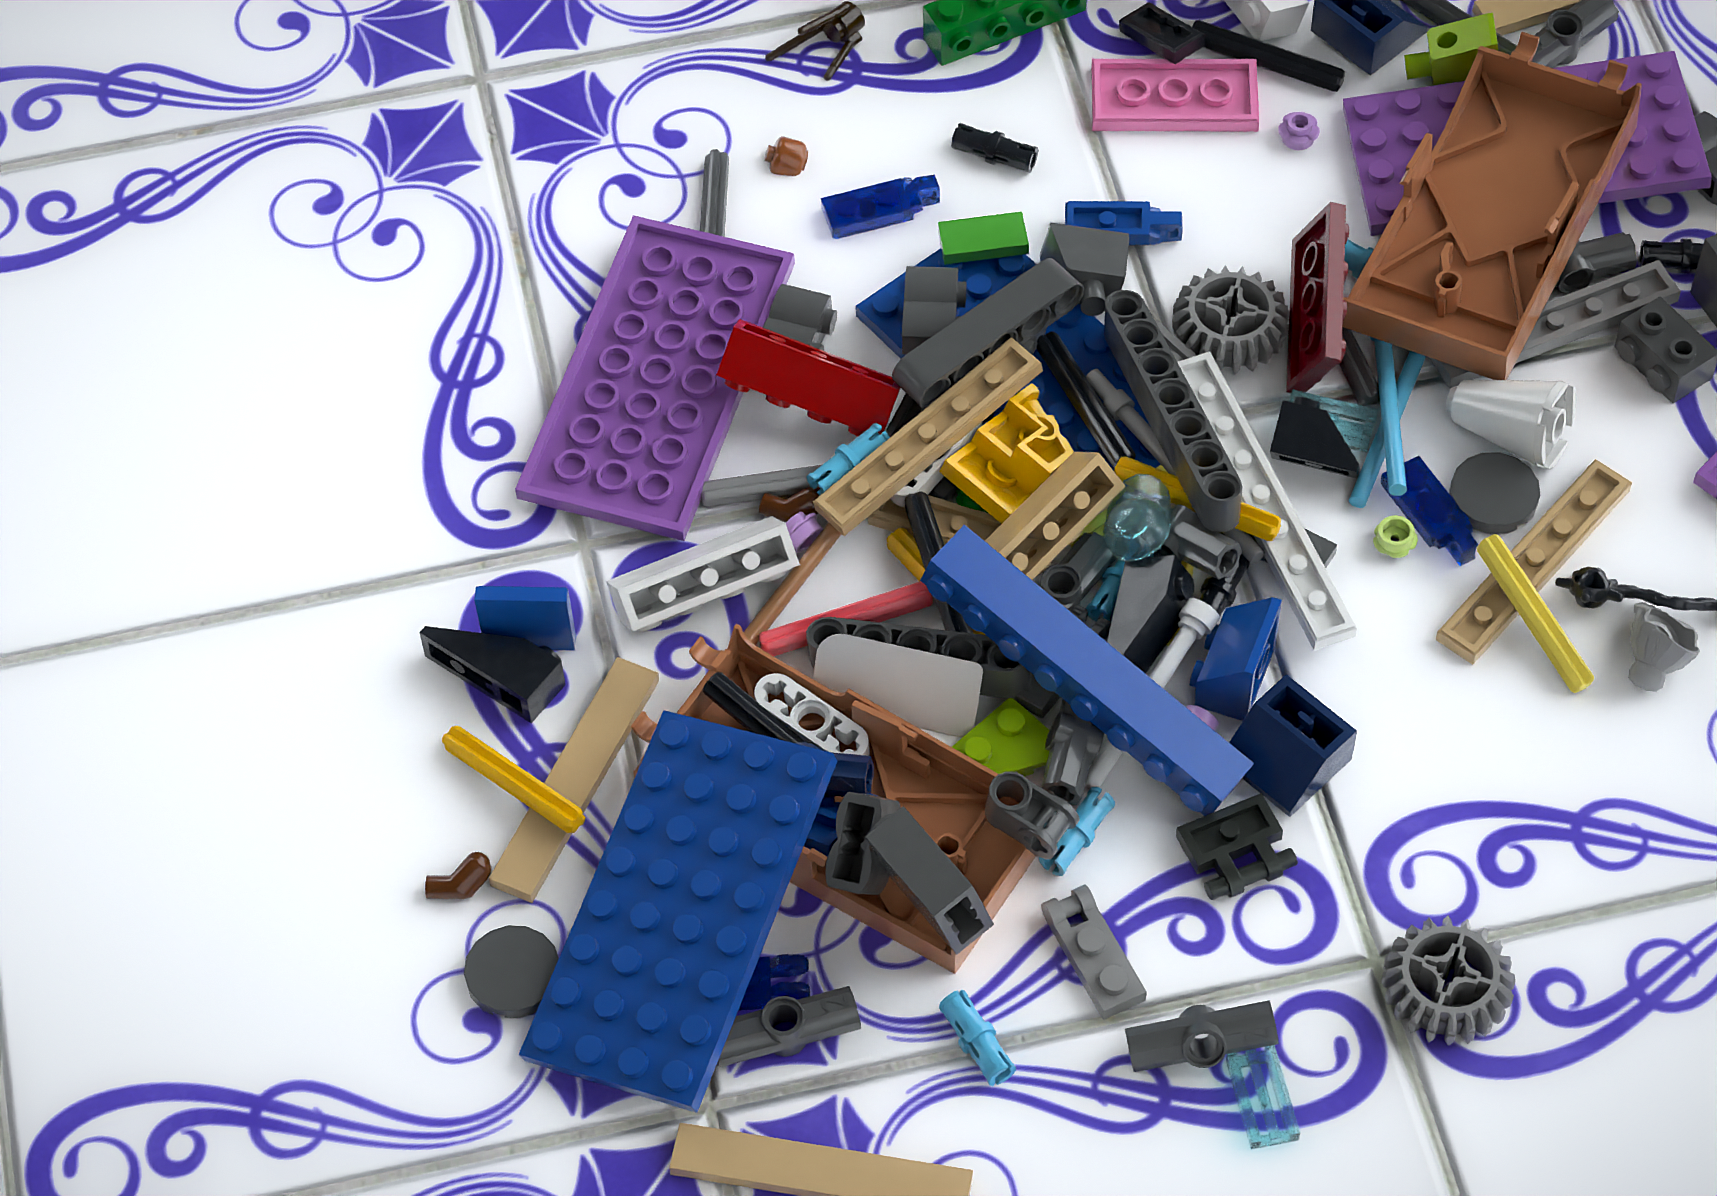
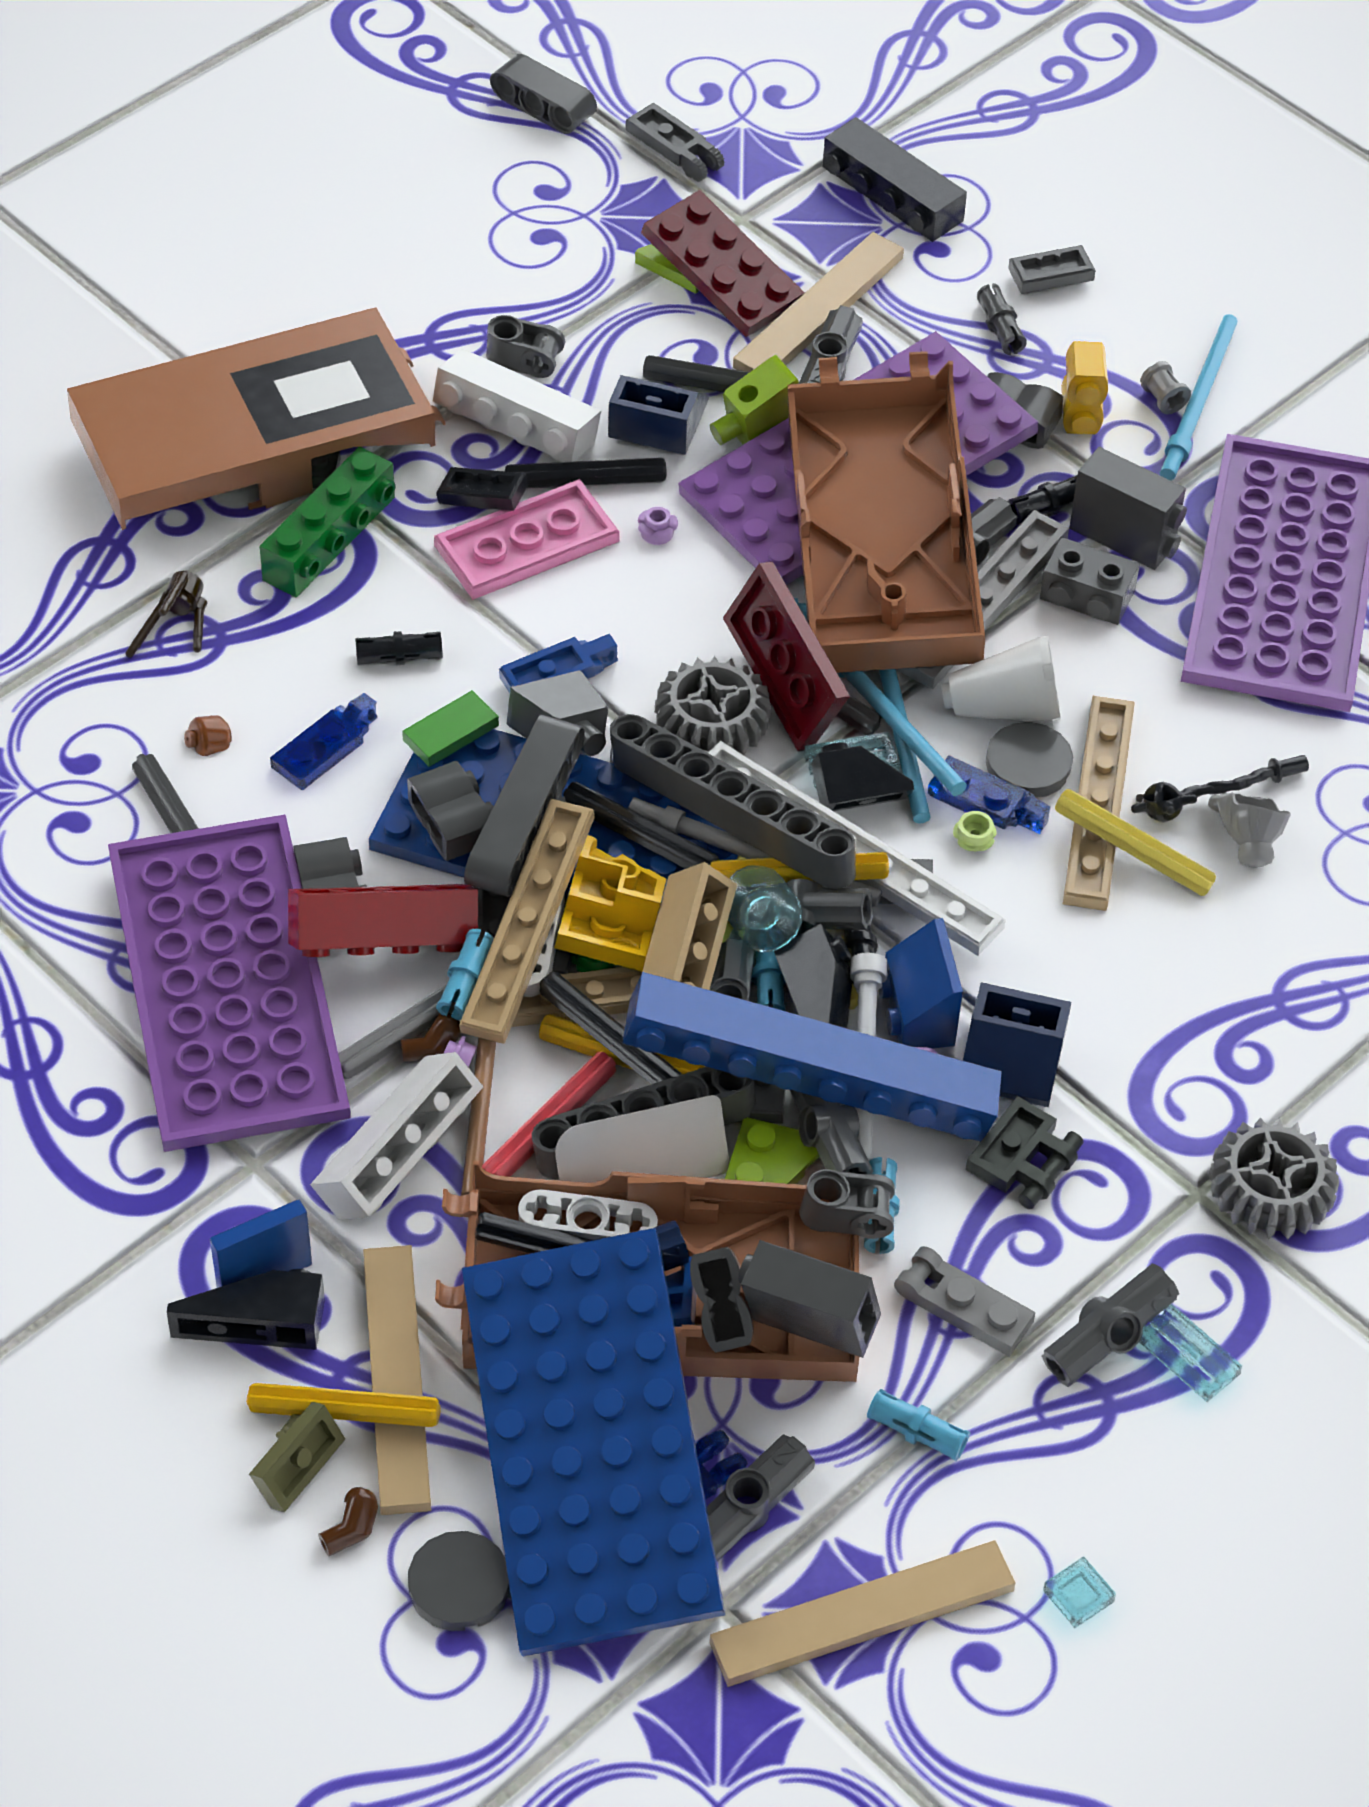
camera: 35 degrees left, 5 degrees down
(449, 803) = (297, 1456): none -> olive hinge

